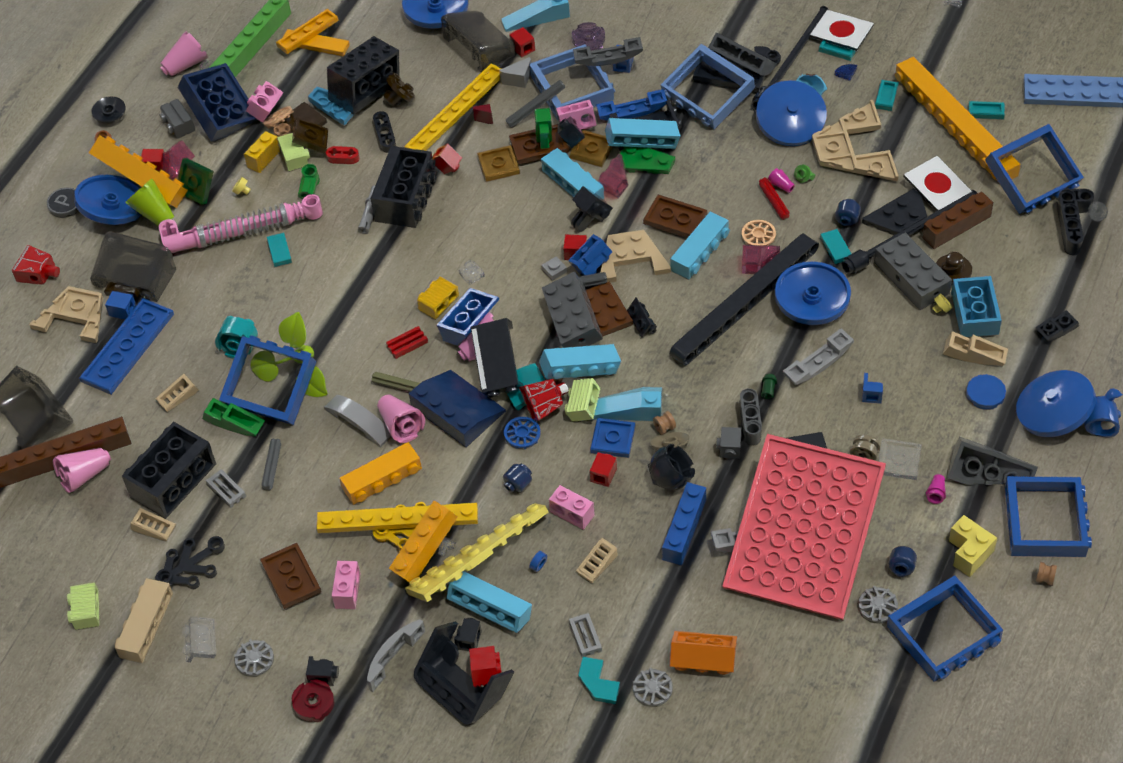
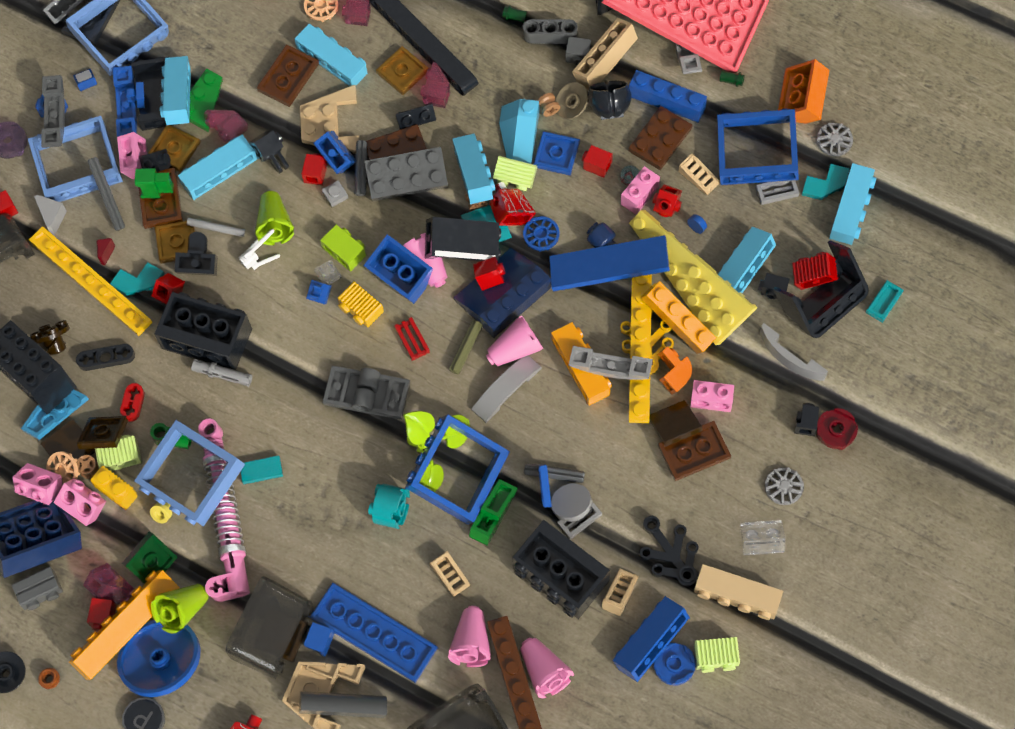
camera: 85 degrees left, 15 degrees up
(58, 324) = (343, 704): none -> dark grey brick
(80, 571) = (675, 664): none -> blue tile
(101, 549) = (651, 638): none -> blue brick
(109, 407) = (470, 639): none -> bright pink cone
(239, 477) = (571, 502): none -> light grey tile
(248, 130) = (77, 505): none -> bright pink brick
(249, 447) = (544, 485): none -> blue tile
(301, 183) = (214, 495): none -> medium blue window
(316, 554) = (675, 423): none -> dark brown tile
(350, 313) = (366, 392): none -> dark grey plate
(372, 486) = (610, 366): none -> light grey slope
(372, 554) = (679, 371): none -> orange brick
(449, 266) = (318, 292): none -> blue tile
(454, 137) = (130, 285): none -> teal tile
(460, 743) = (884, 301): none -> teal tile
(467, 385) = (489, 273): none -> red brick
(473, 173) = (196, 259): none -> black brick
(482, 213) = (249, 257): none -> white plant
(484, 484) = (609, 263): none -> blue tile
(495, 277) = (343, 247): none -> lime brick
(512, 184) = (216, 227): none -> light grey bar
(520, 221) = (274, 216): none -> lime cone
(559, 530) = (667, 201): none -> red brick
(571, 704) = (852, 204): none -> medium azure brick
(596, 498) = (628, 174): none -> clear light blue tile
(631, 637) = (760, 173): none -> blue window
(638, 525) = (660, 138): none -> reddish brown plate
(639, 111) = (136, 95): none -> blue tile
(655, 77) = (85, 79): none -> blue slope
(672, 328) = (436, 88): none -> clear pink slope
(693, 304) = (402, 70): none -> pearl gold tile
(715, 587) = (732, 78): none -> dark green pin
(722, 461) = (605, 53): none -> tan brick

